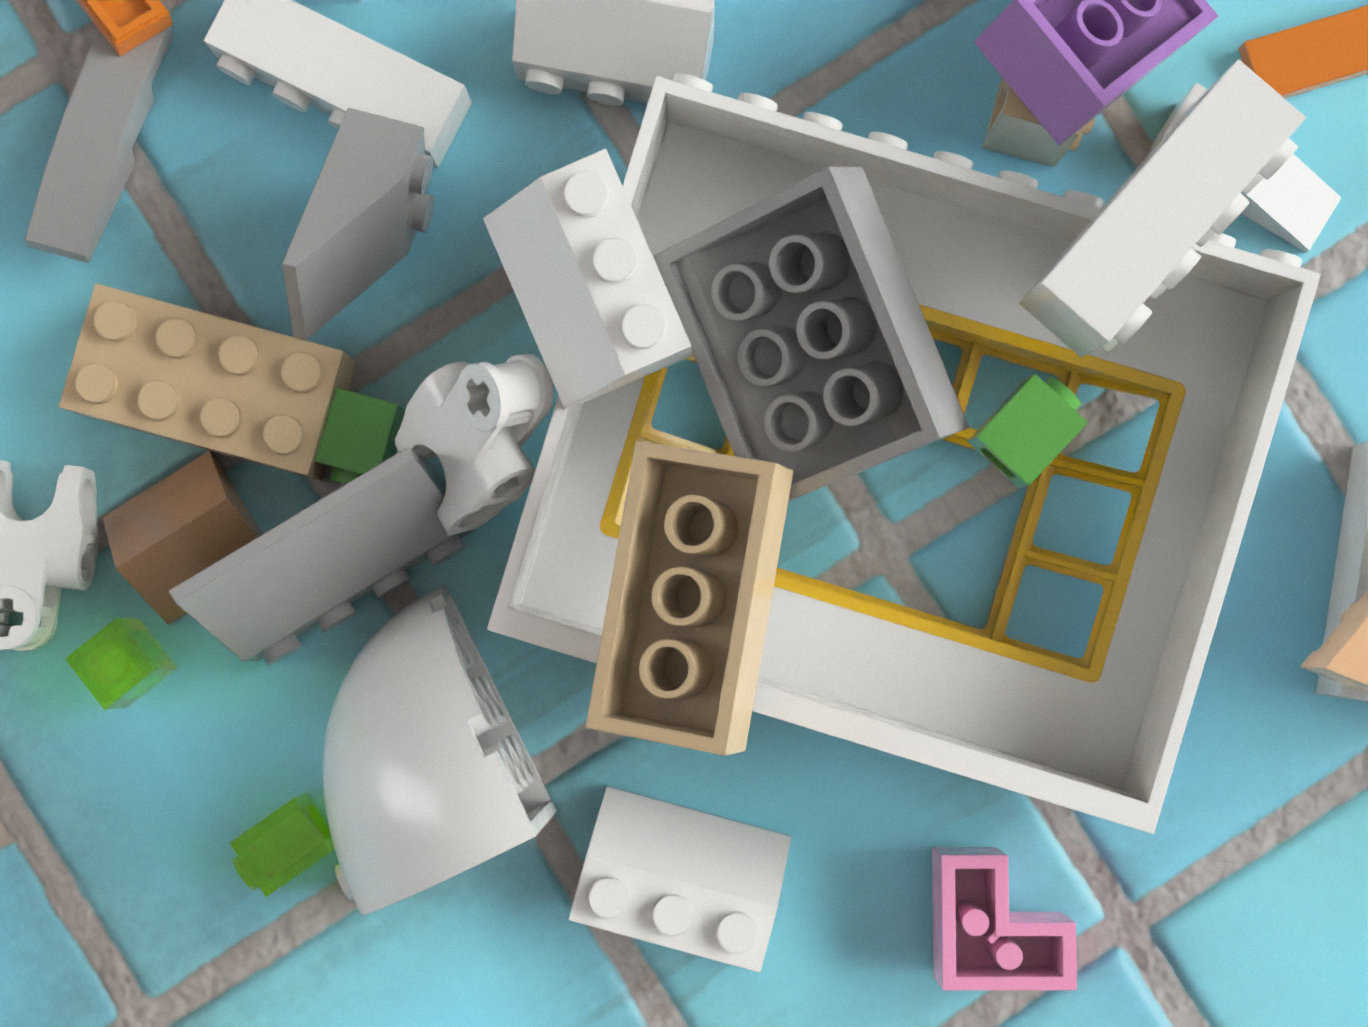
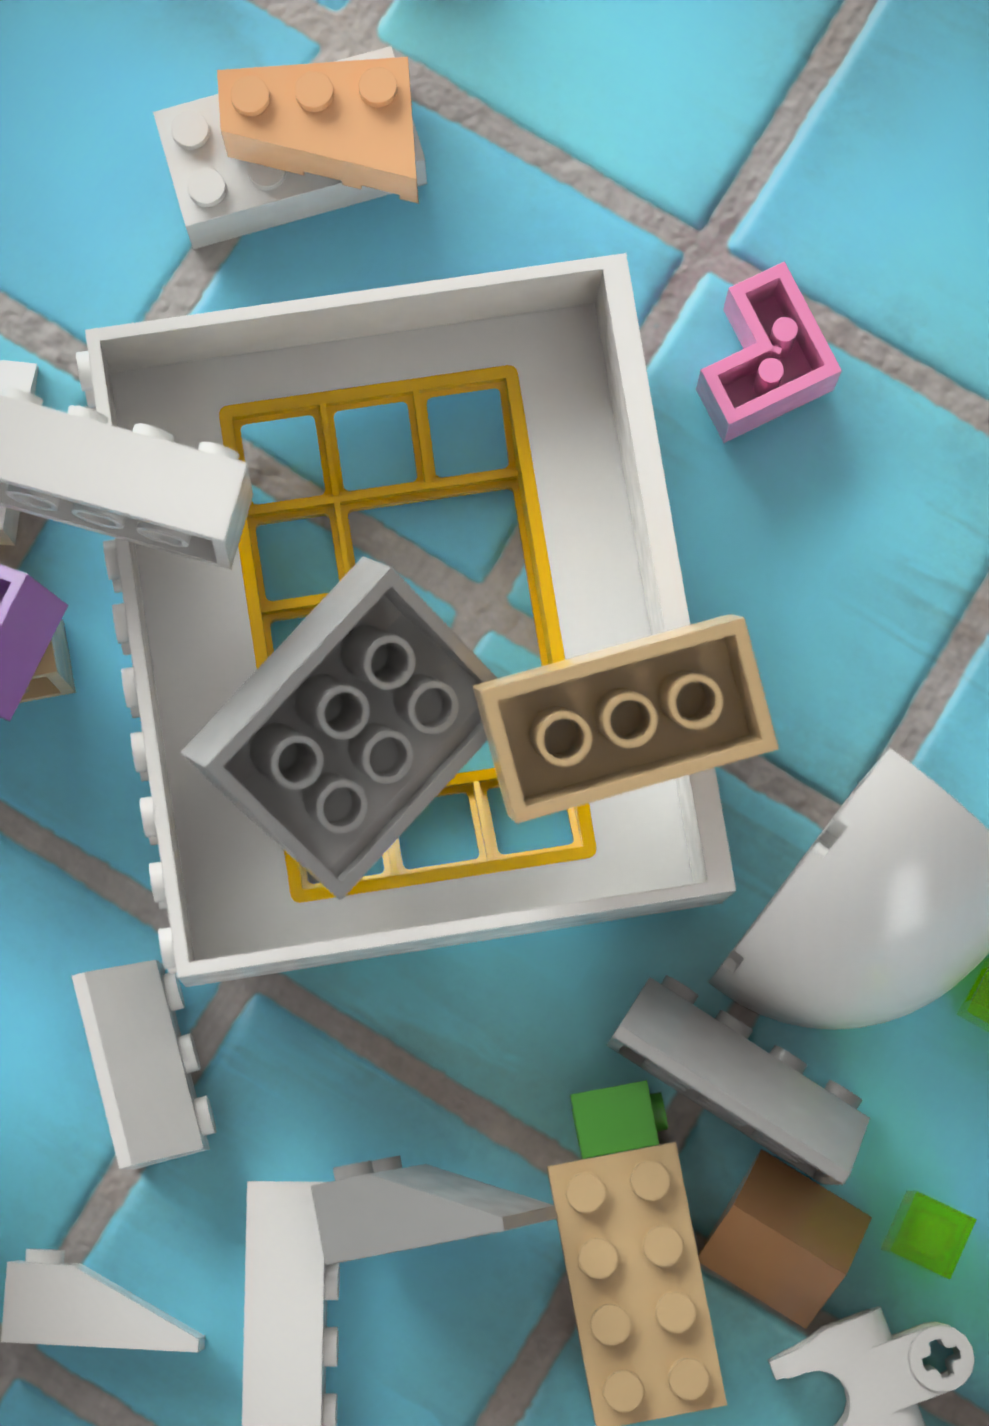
camera: 120 degrees left, 5 degrees down
(476, 426) = (565, 992): white piece -> none
(587, 280) = (394, 942): white slope -> none
(682, 879) = (861, 641): white slope -> none
(1029, 429) = (339, 506): bright green brick -> none

